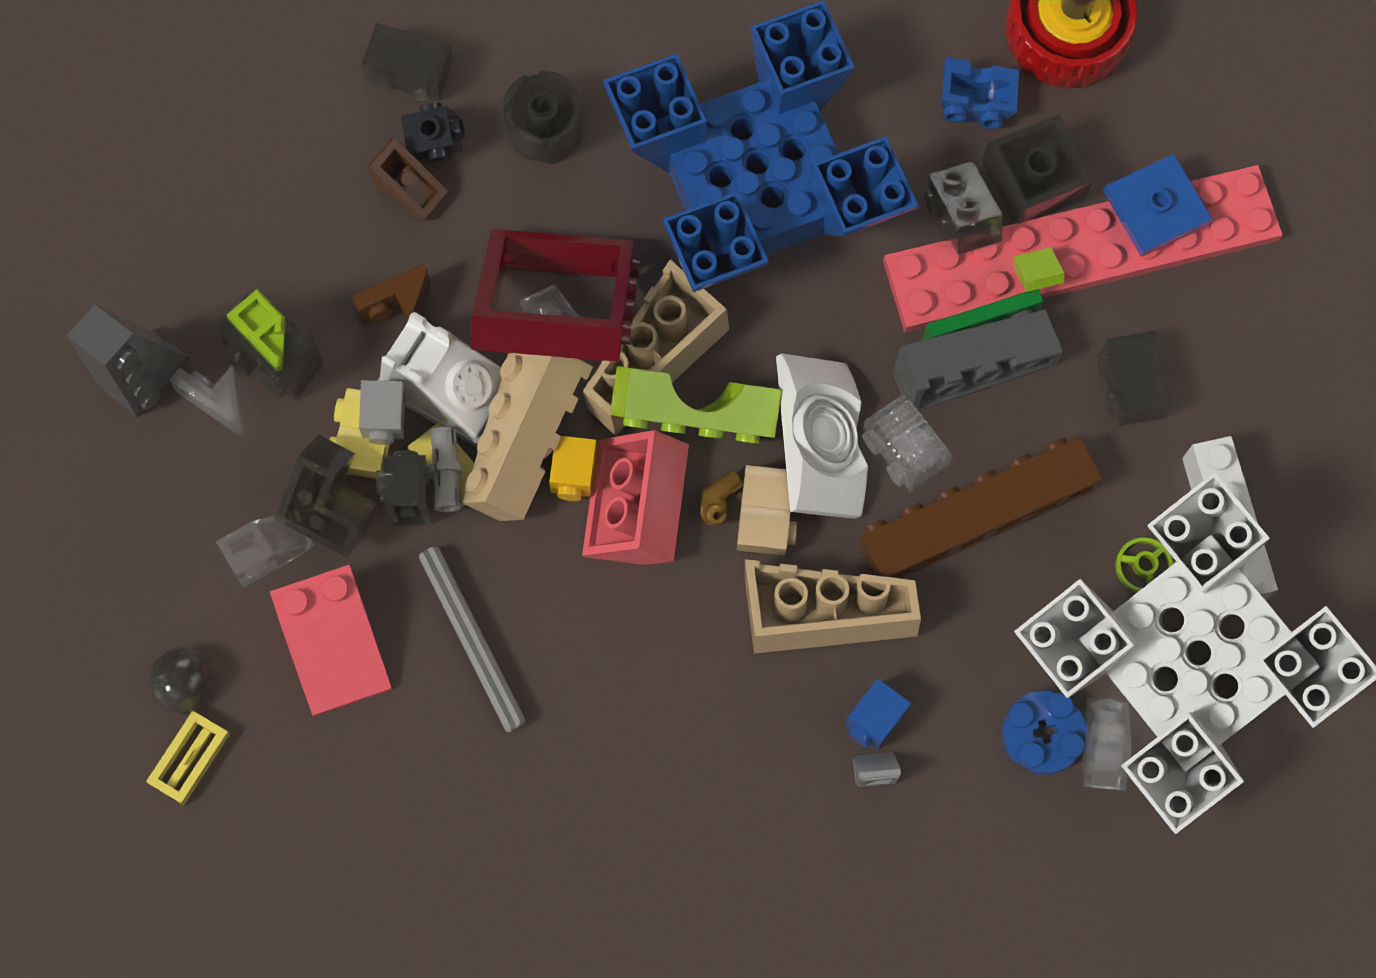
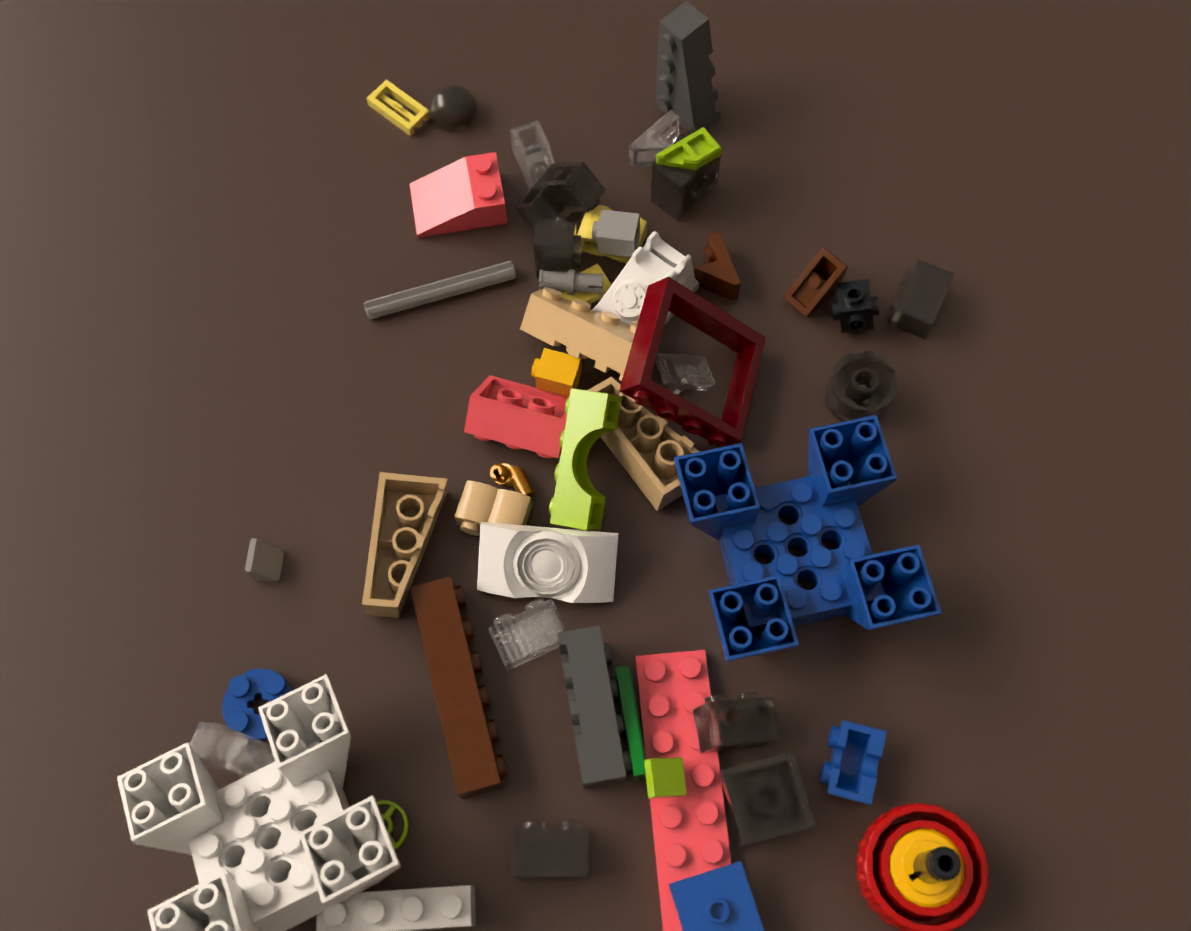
camera: 105 degrees right, 5 degrees down
(876, 715) = (305, 567): blue brick -> none

